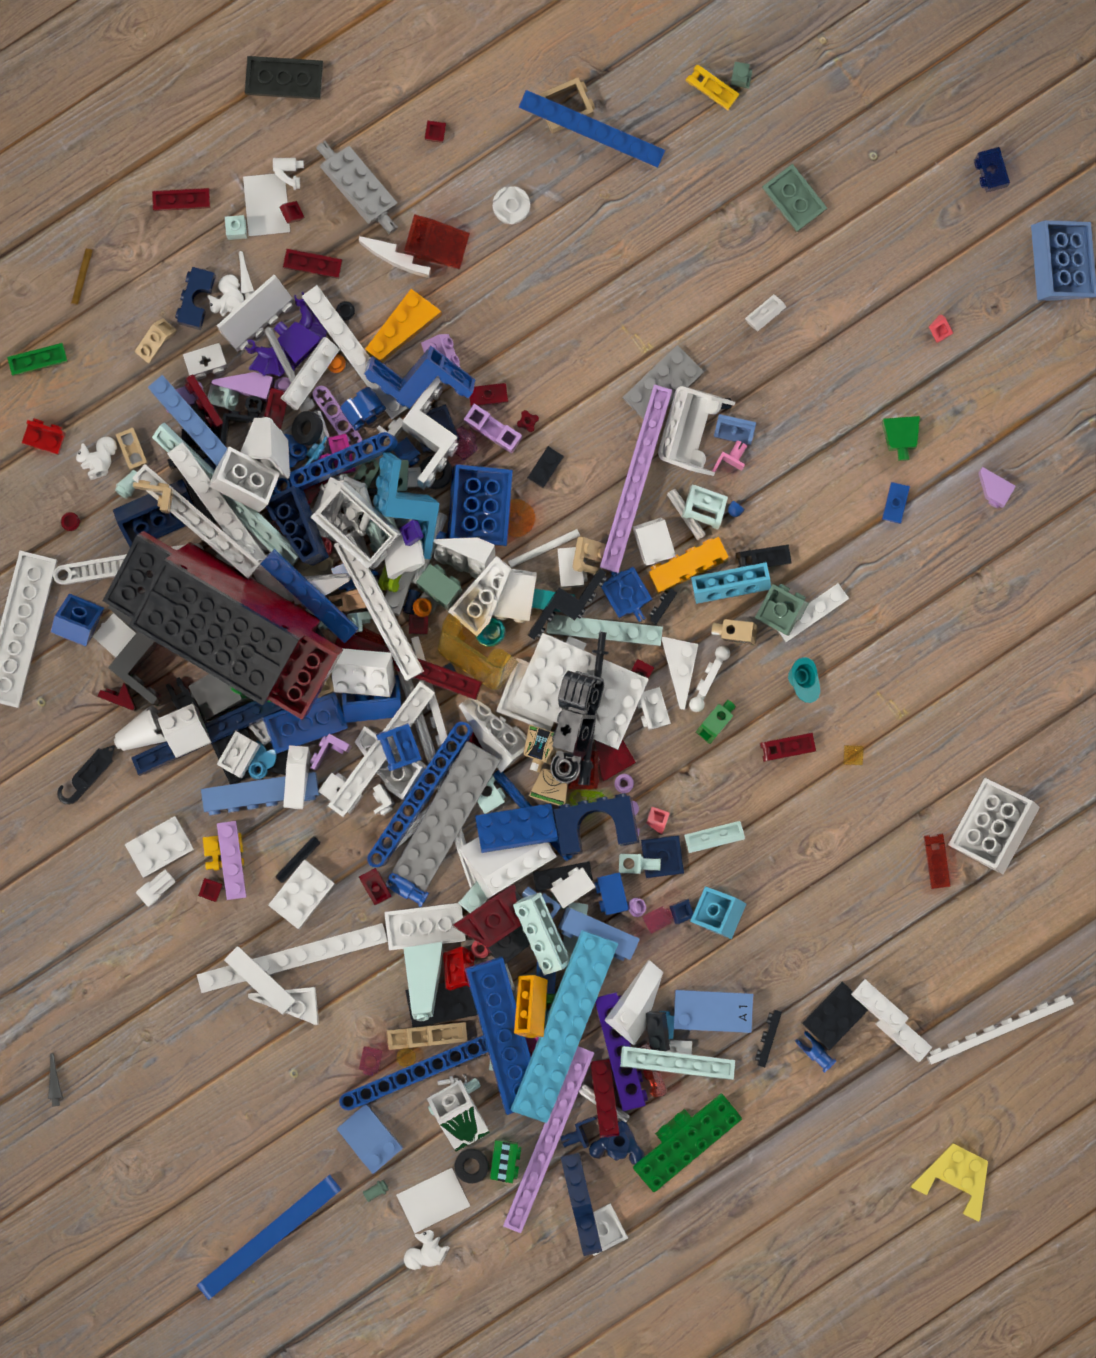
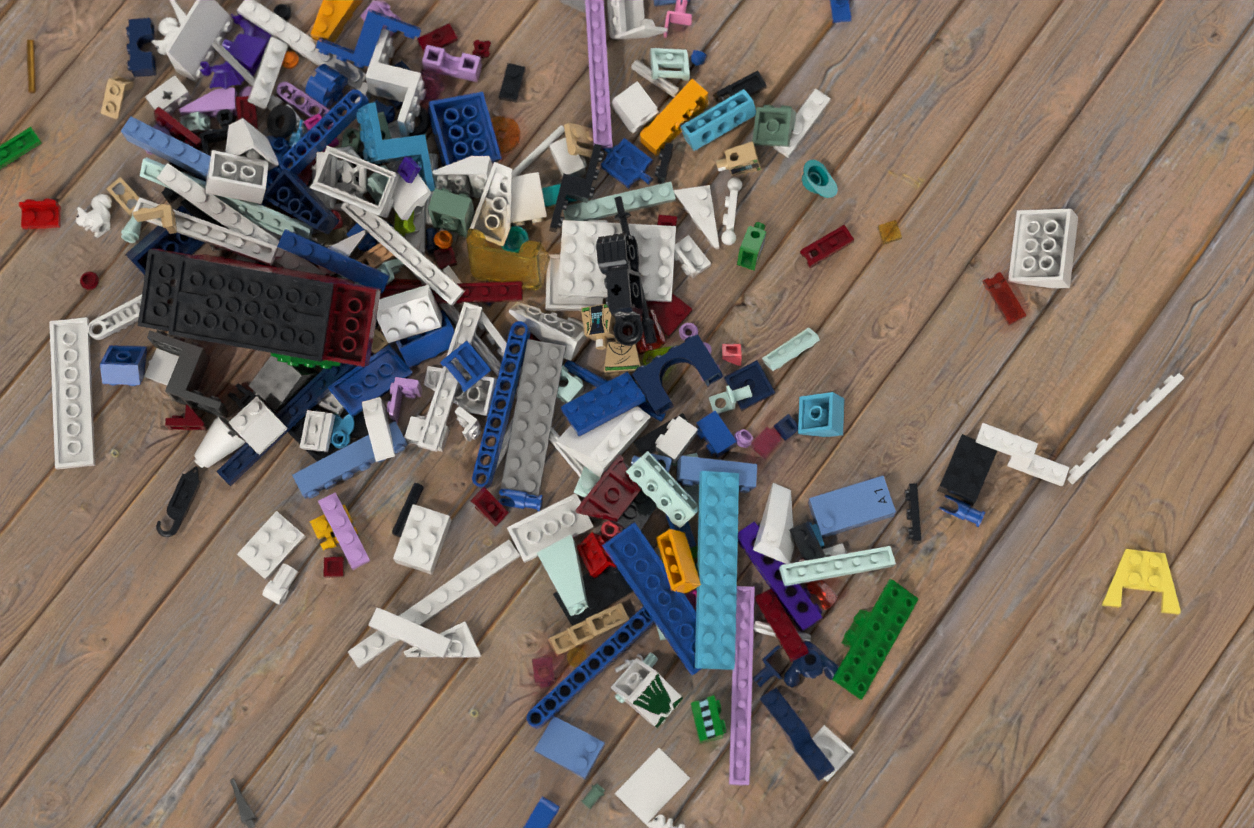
camera: 20 degrees left, 10 degrees down
(471, 1154) = (686, 729): black tyre -> none

